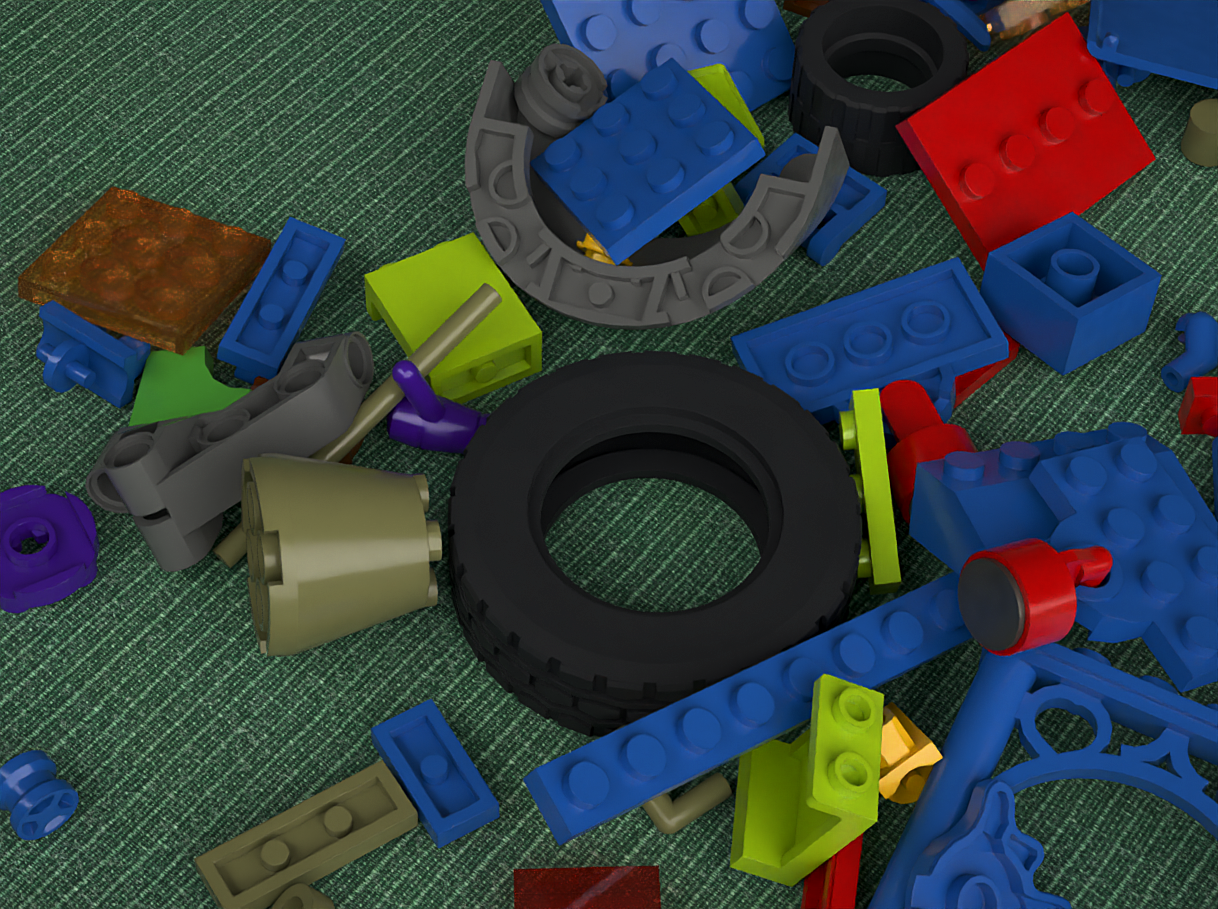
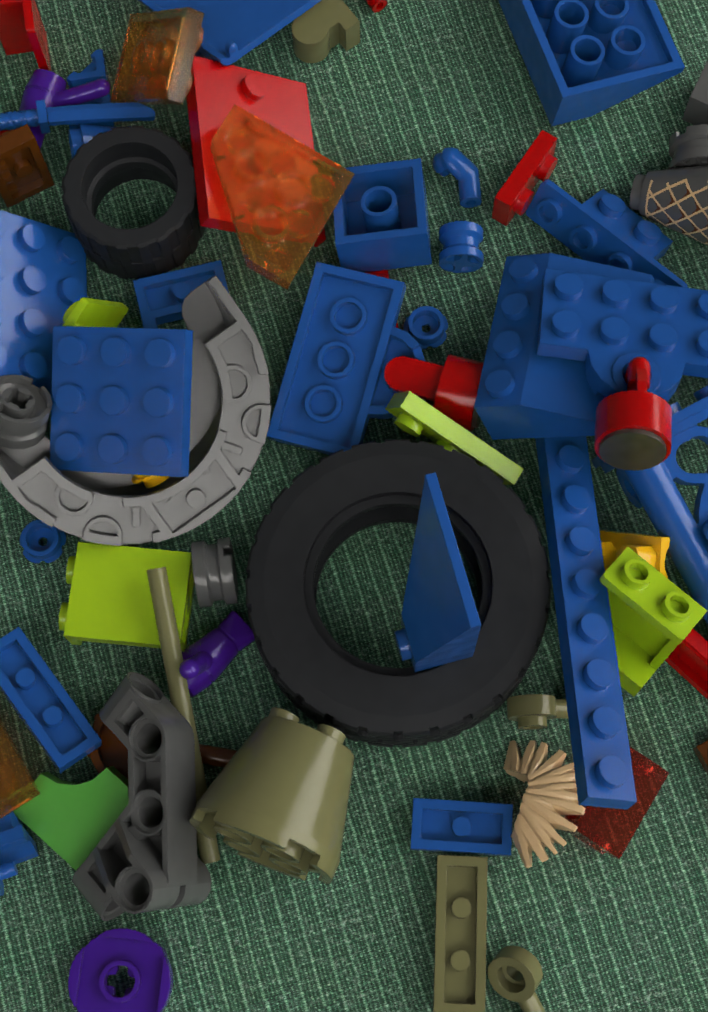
camera: 50 degrees left, 20 degrees up
(451, 217) = (30, 542): none -> blue plate
(508, 832) = (547, 797): none -> tan hair
(531, 355) = (214, 572): none -> dark grey wheel
(673, 505) = (438, 604): none -> blue slope
(987, 404) = (429, 317): none -> blue plate
(991, 165) = (275, 193): none -> clear orange plate
(1109, 391) = (461, 247): none -> blue wheel

